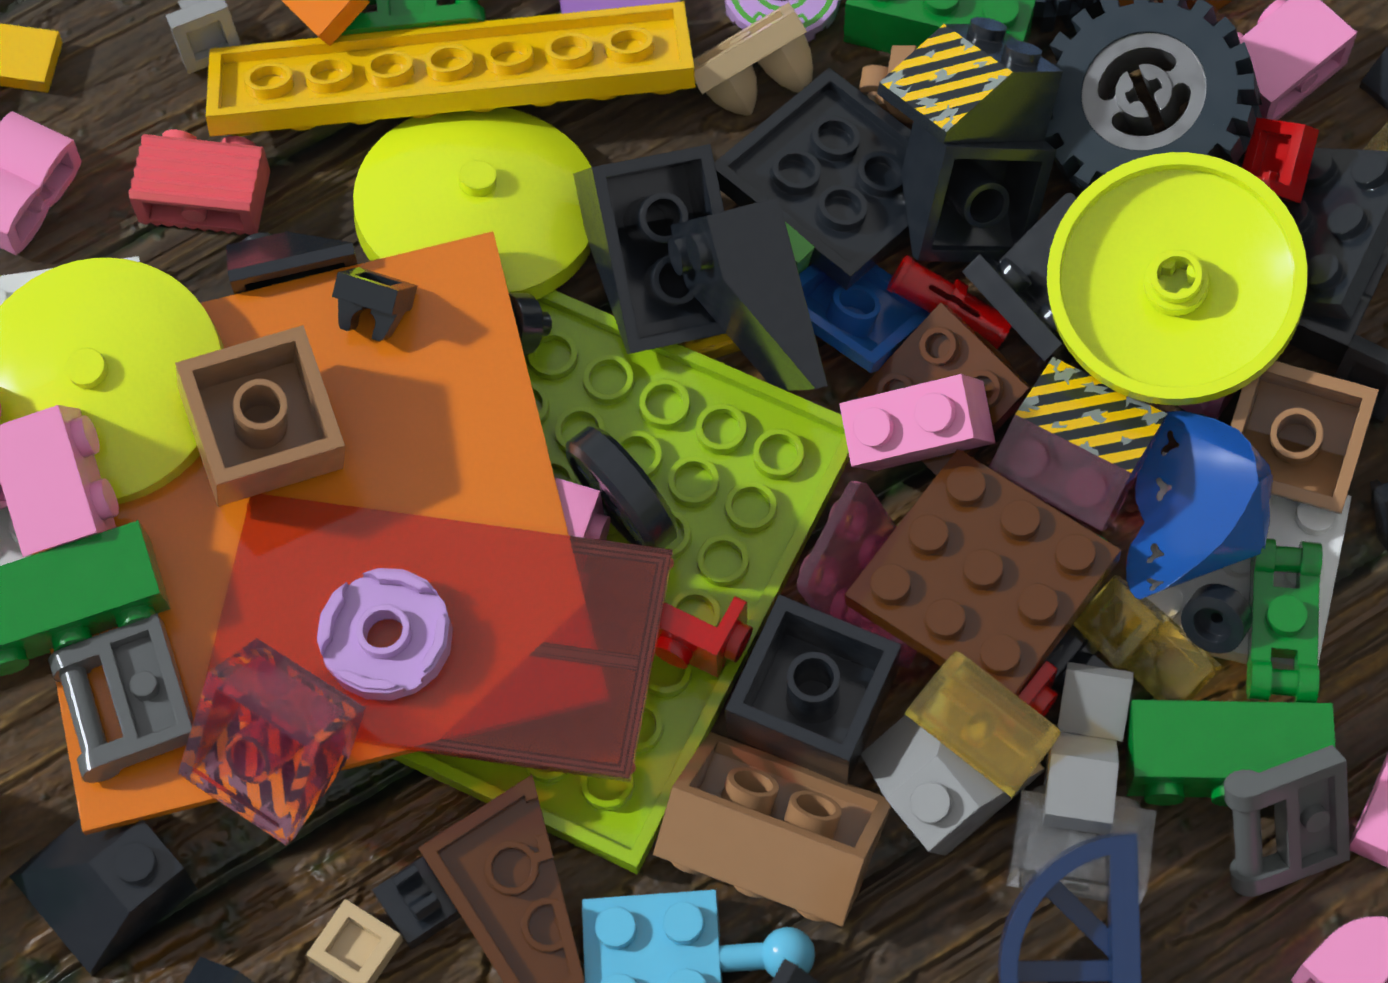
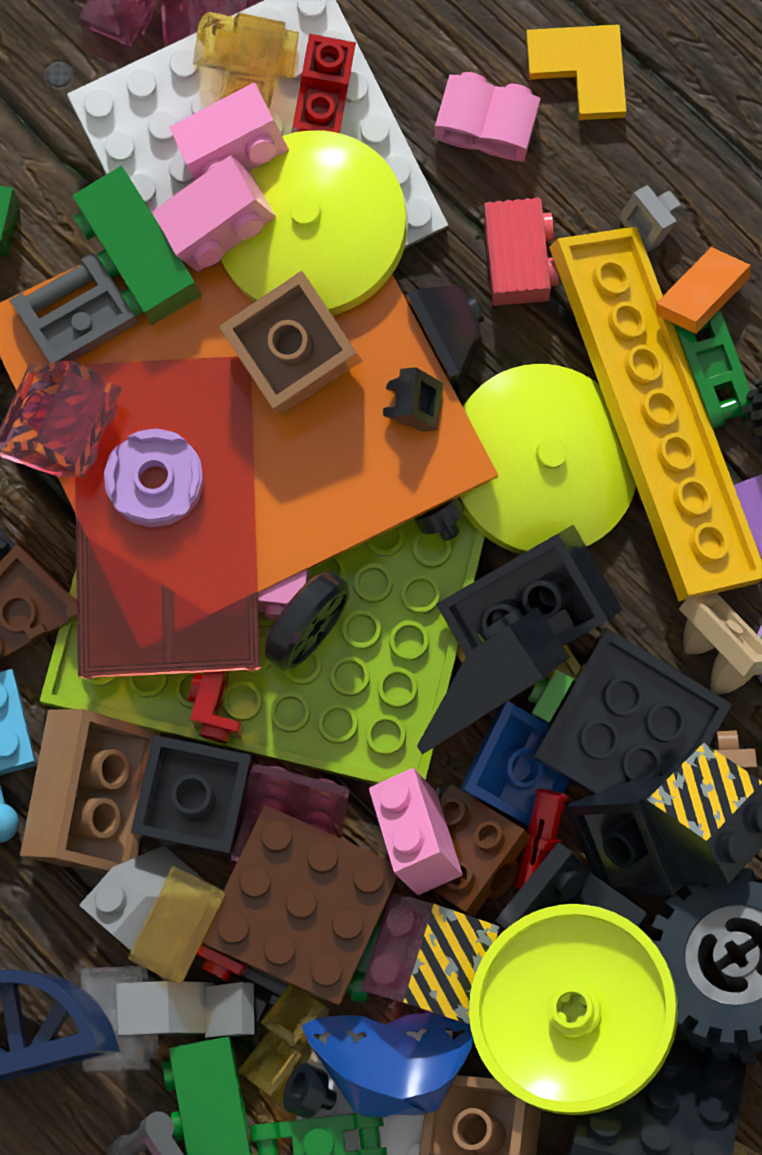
camera: 80 degrees right, 10 degrees up
(1281, 156) = (702, 1074): red bracket -> none

